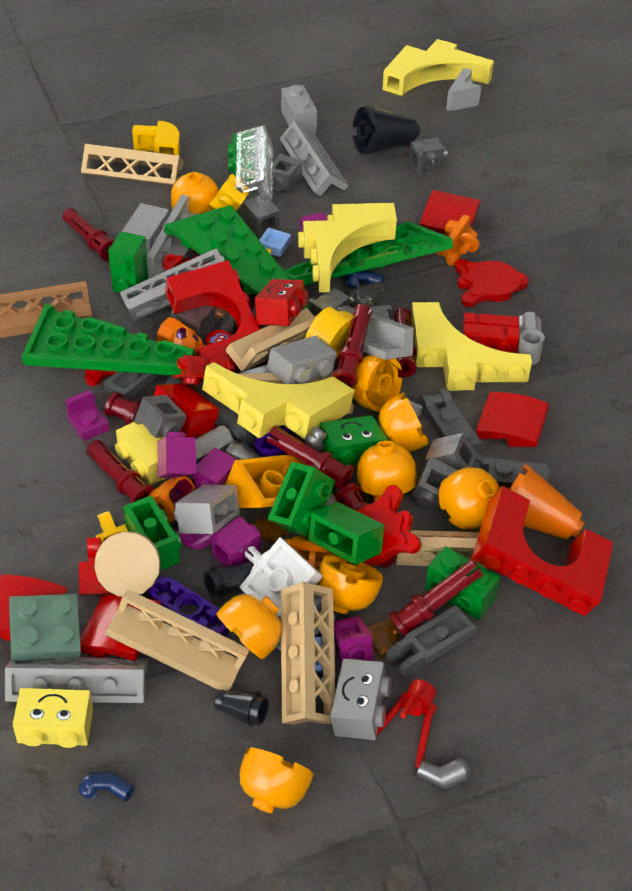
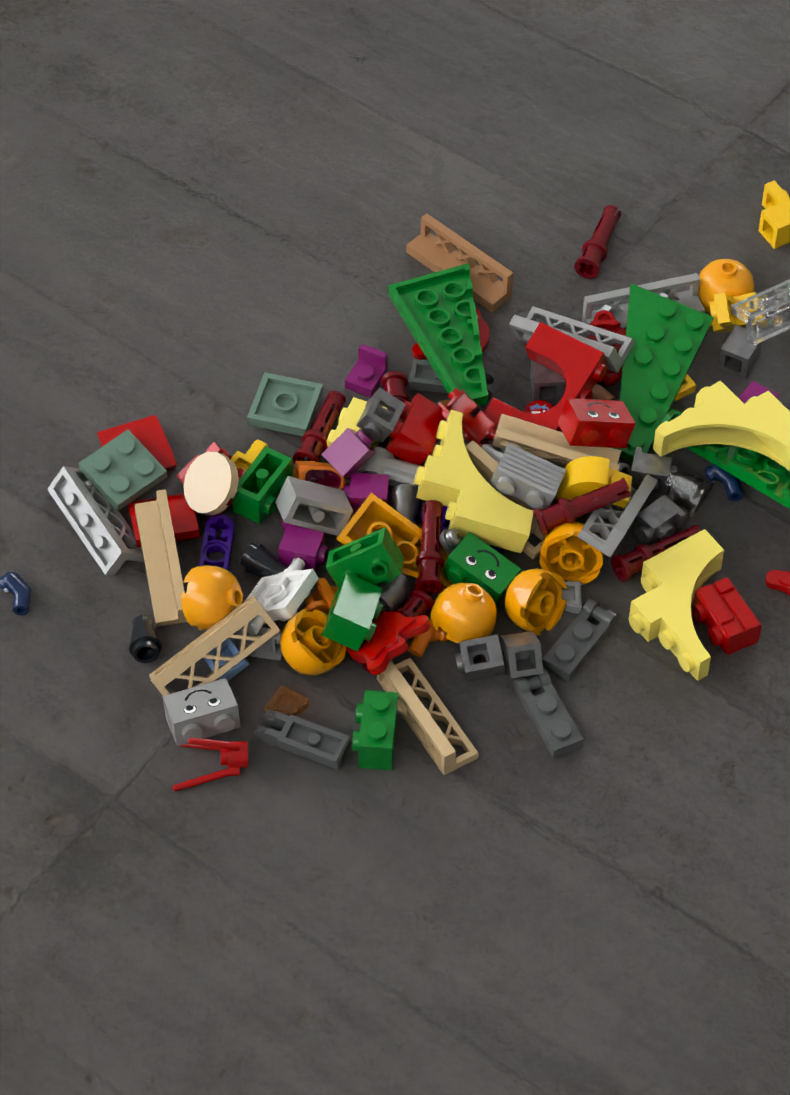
camera: 60 degrees right, 5 degrees up
(53, 717) = (49, 524): light yellow brick -> none
(71, 483) = (285, 404): none -> sand green plate
(128, 261) = (566, 287): green brick -> none
(131, 158) = (736, 209): tan fence -> none
(147, 222) = (636, 270): light grey brick -> none
(176, 332) = (514, 381): orange rock -> none
(272, 780) = (83, 689): light orange cylinder -> none
(276, 241) = (710, 376): light blue plate -> none
(353, 639) = (258, 679): magenta bracket -> none
(423, 607) = (325, 710): dark red pin -> none
(446, 775) = (176, 810): flat silver arm -> none
(467, 496) = (479, 690): light orange cylinder -> none
(505, 550) = (438, 815): red arch -> none
(513, 418) = (623, 686): red slope -> none
(530, 336) = (745, 652): light grey piece -> none
(548, 508) = (511, 746): orange cone -> none

